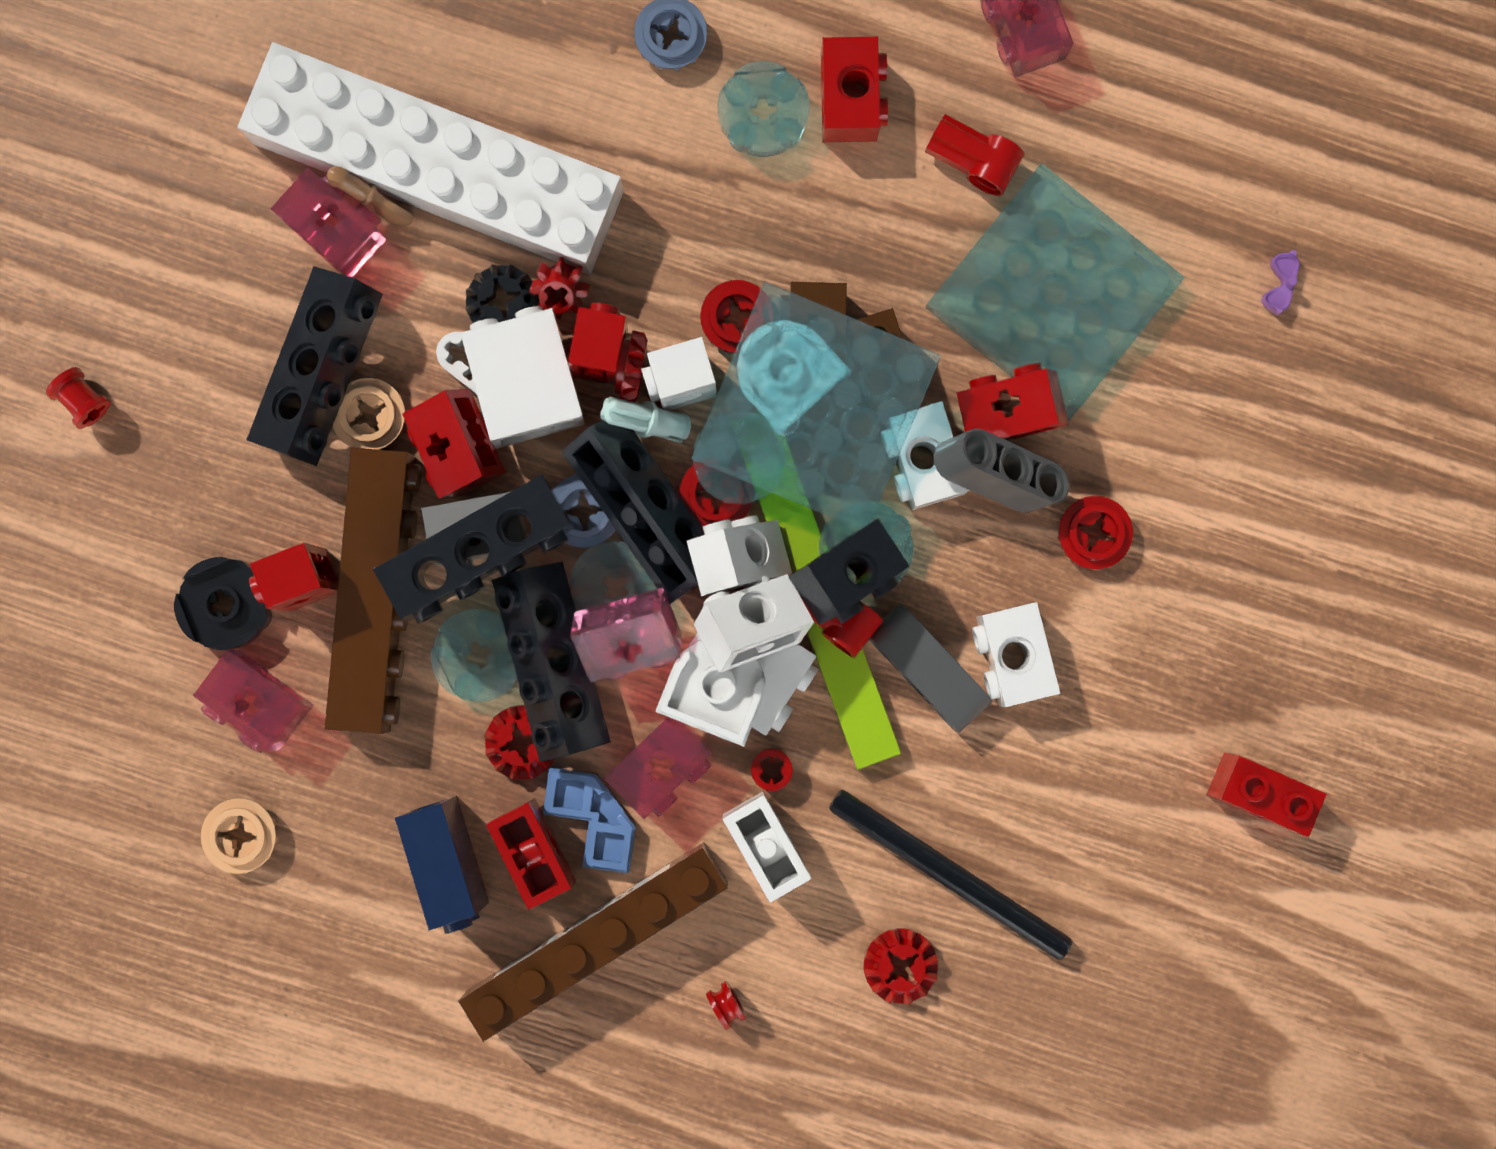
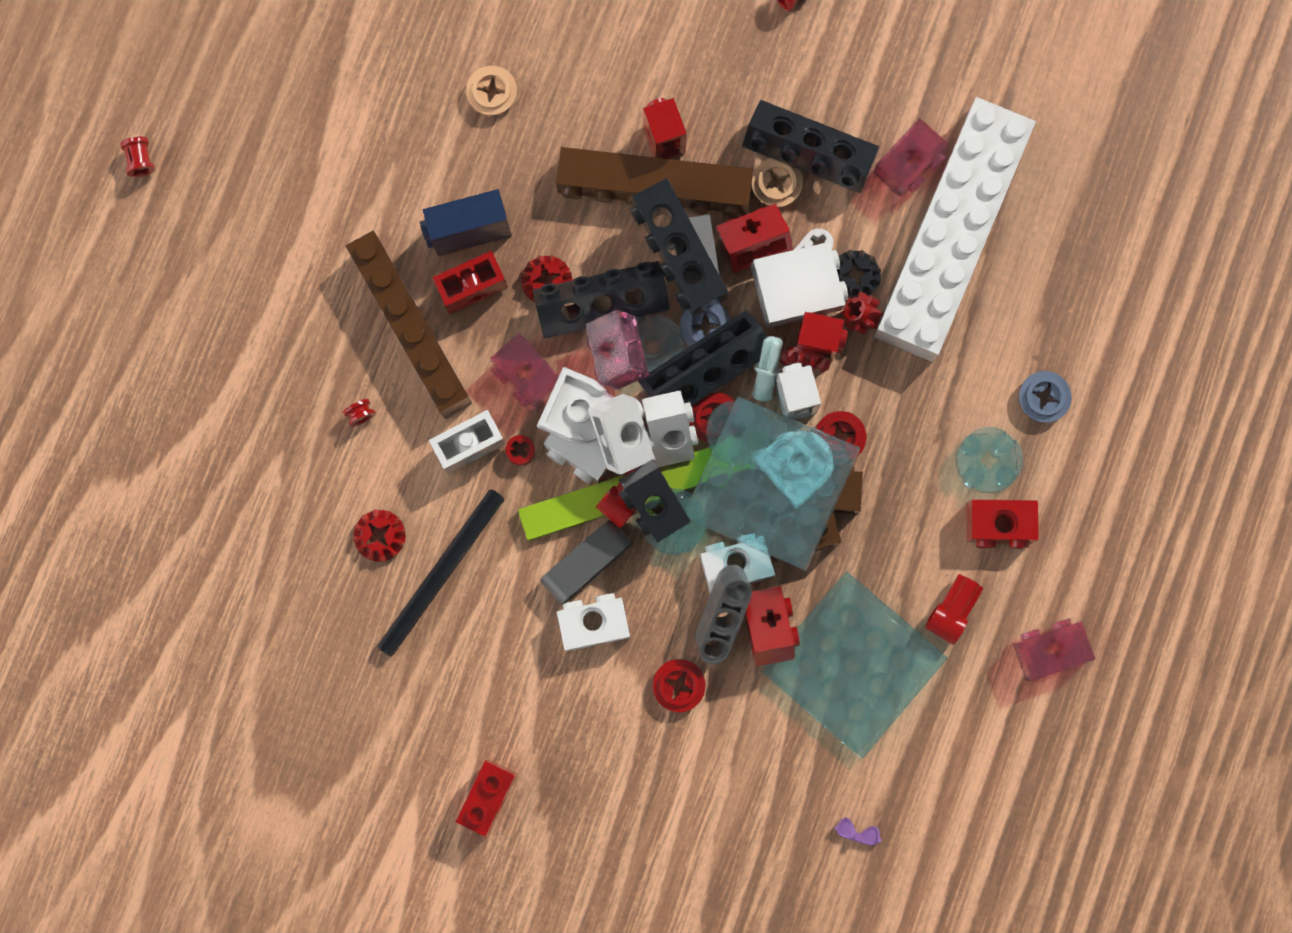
camera: 100 degrees right, 5 degrees down
(198, 594) = (644, 65): black plate -> none
(278, 704) = (580, 117): clear pink brick -> none
(367, 193) = (930, 184): medium nougat piece -> none
(453, 647) = (611, 234): clear light blue plate -> none
(588, 798) = (485, 338): medium blue tile -> none

